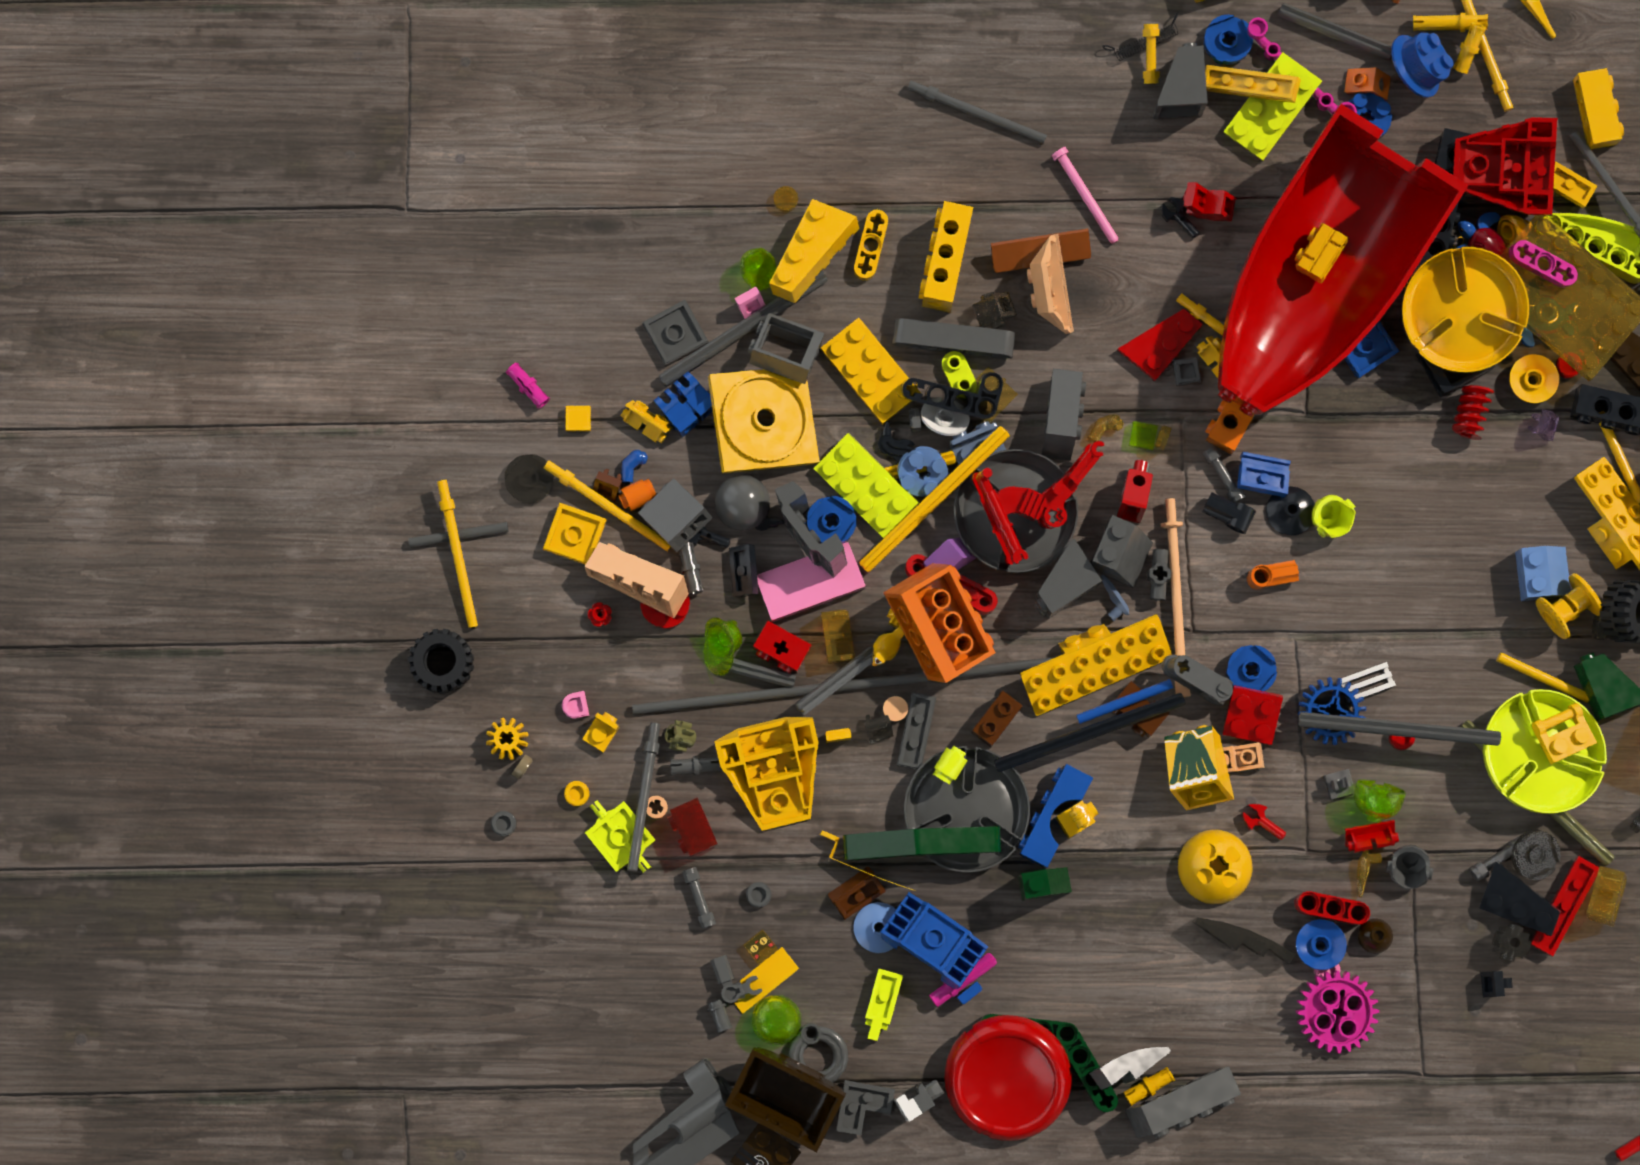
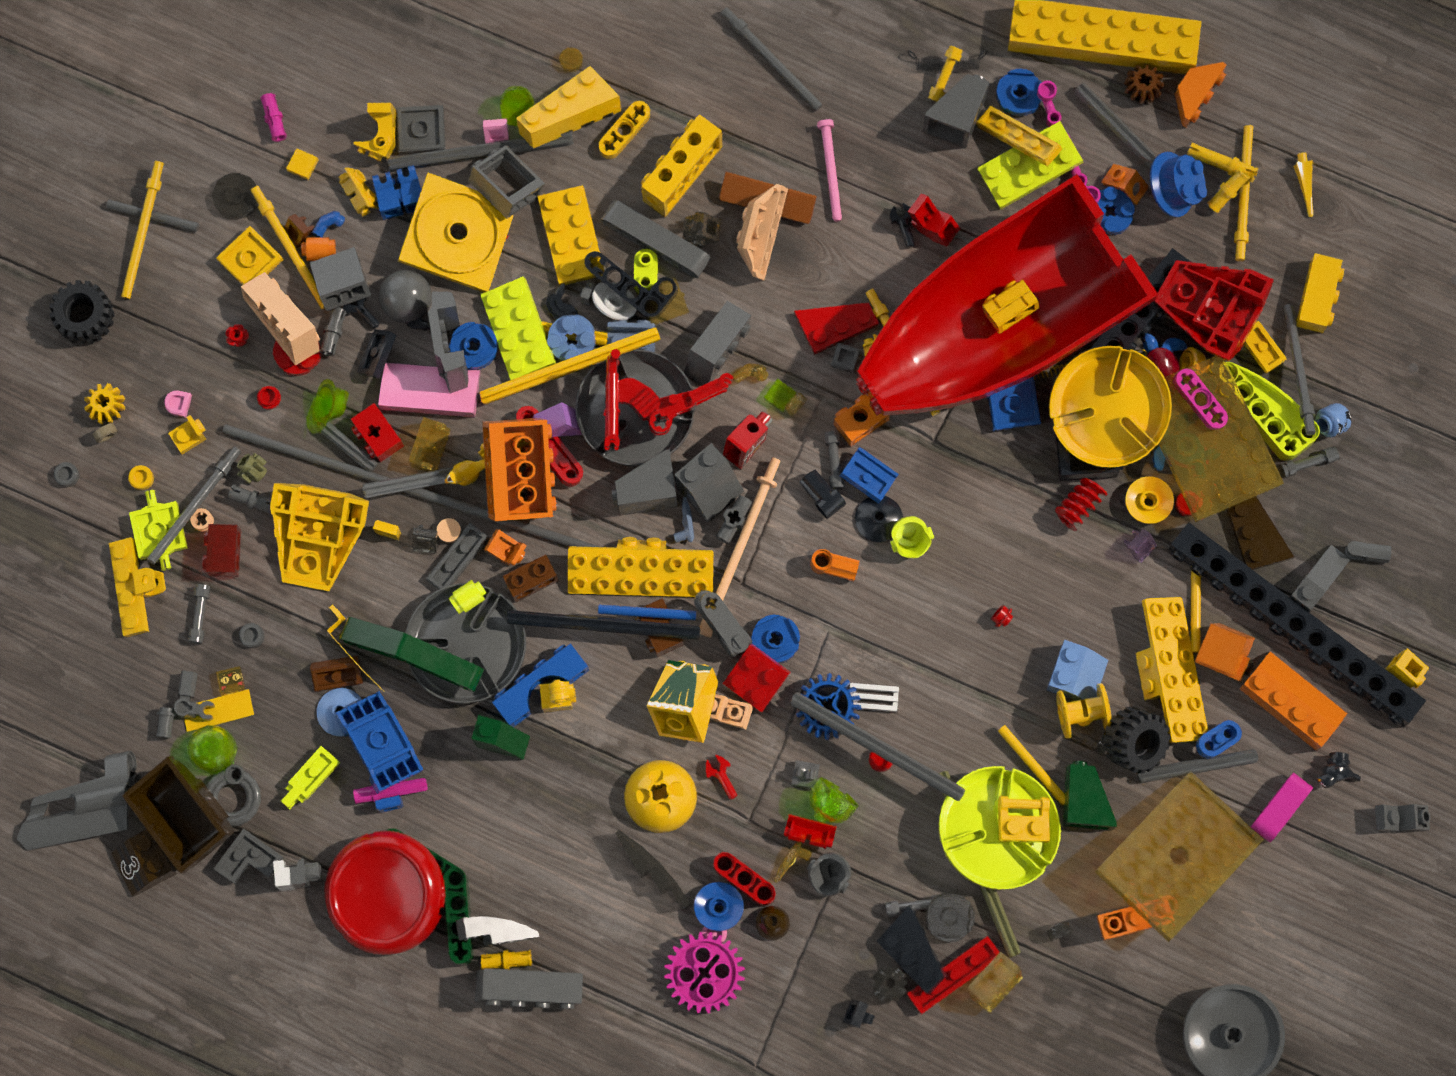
camera: 30 degrees right, 5 degrees down
(623, 901) = (132, 586): none -> yellow plate
(640, 339) = (385, 115): none -> yellow tile
(660, 660) = (268, 397): none -> red plate
(959, 701) = (505, 548): none -> orange bracket
(1449, 551) = (1002, 616): none -> red plate

